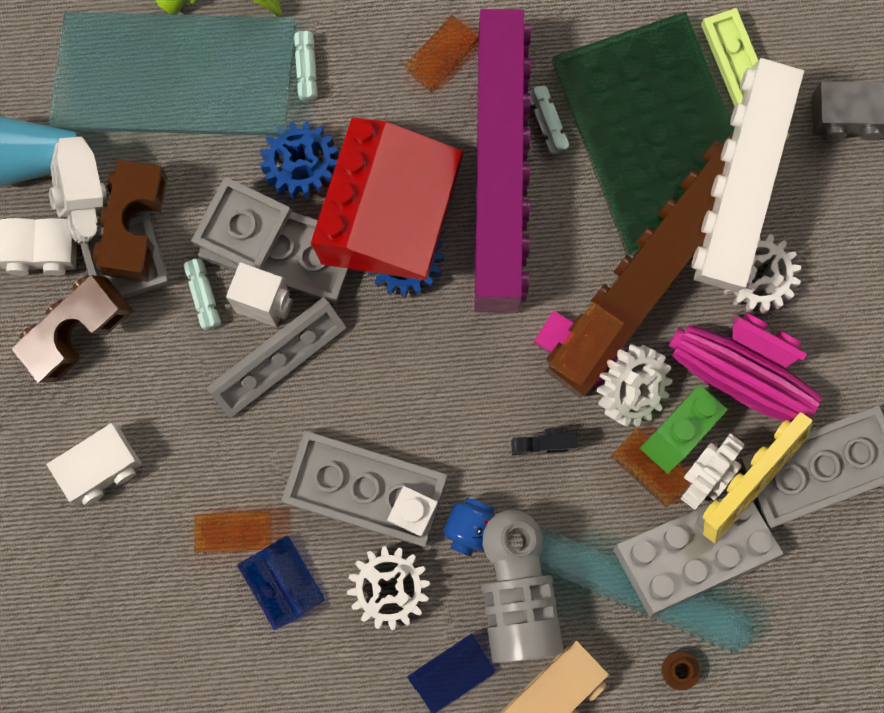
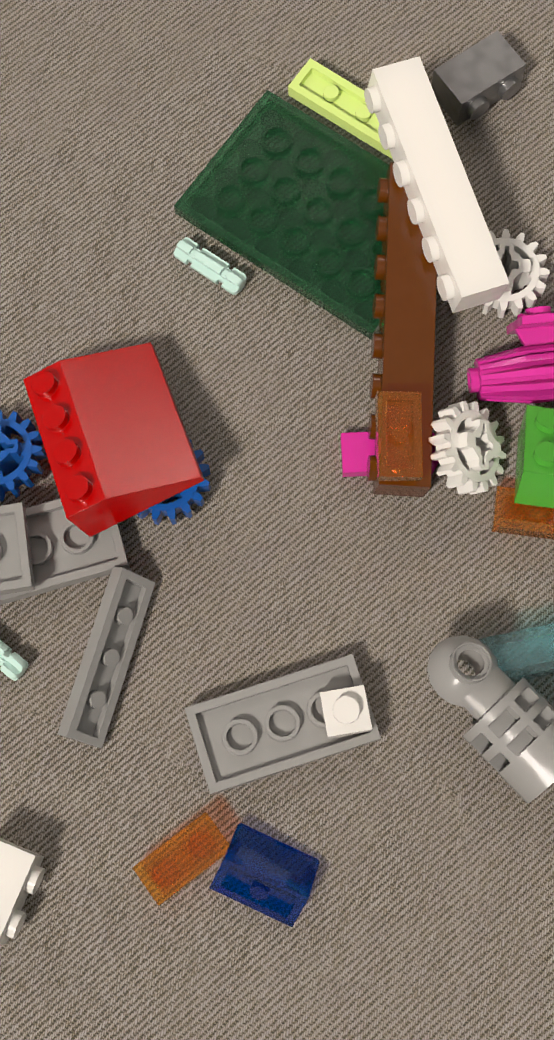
camera: 30 degrees left, 5 degrees down
(259, 295) = (49, 606): white brick -> none
(375, 577) = (395, 803): white gear -> none
(441, 53) = (66, 272): clear orange plate -> none
(451, 673) = (493, 843): clear blue panel -> none
(467, 526) = (408, 688): blue head -> none
(500, 155) = (195, 329): magenta brick -> none
(554, 441) = (428, 554): black plate -> none

